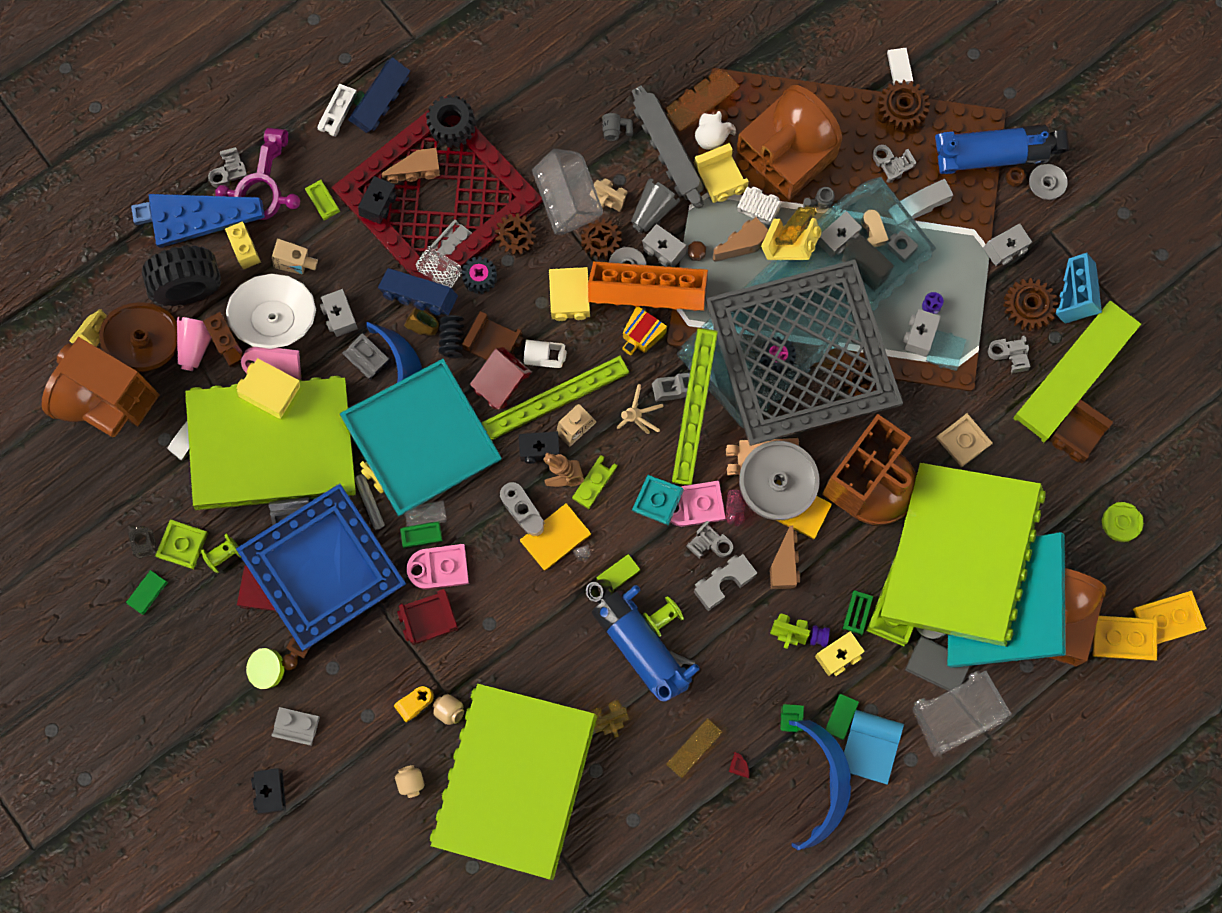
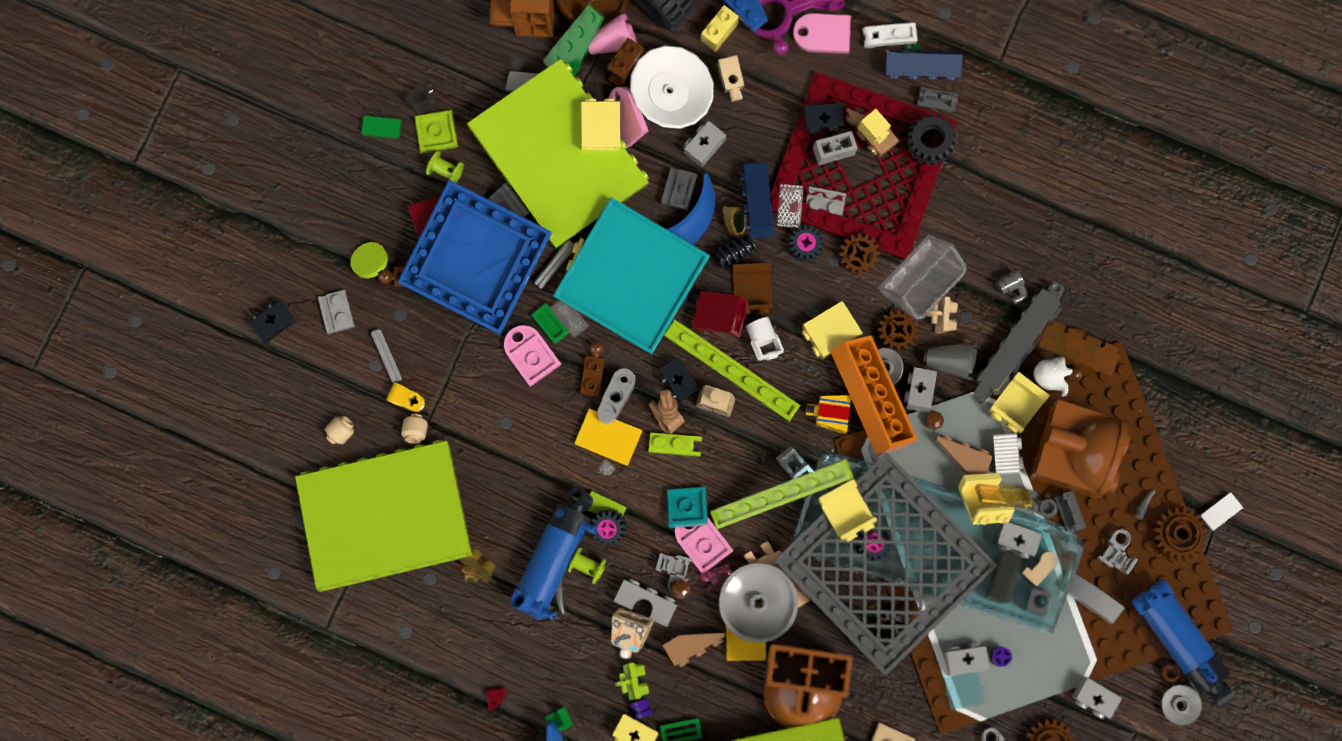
camera: 60 degrees right, 5 degrees up
(176, 371) = (576, 40): none -> green wing
(302, 162) = (825, 33): none -> bright pink tile
(322, 200) = (800, 70): lime tile -> none
(364, 700) = (386, 355): none -> light grey axle
(410, 203) = (835, 148): none -> light grey brick
(414, 156) = (874, 127): none -> light yellow brick
(417, 101) = (937, 99): none -> dark grey hinge
(427, 618) = (481, 368): dark red panel -> none
(487, 518) = (593, 370): none -> reddish brown plate
(634, 414) = (749, 446): tan plant -> none
(645, 581) = (605, 532): none -> black wheel
(694, 748) = (490, 651): clear yellow tile -> none
(729, 543) = (680, 589): none -> reddish brown tile
(741, 358) = (847, 511): none -> light yellow panel
(744, 608) = (629, 631): none -> tan torso
(838, 182) = (1070, 512): none -> dark grey hinge
(865, 125) = (1141, 509): none -> dark grey helmet

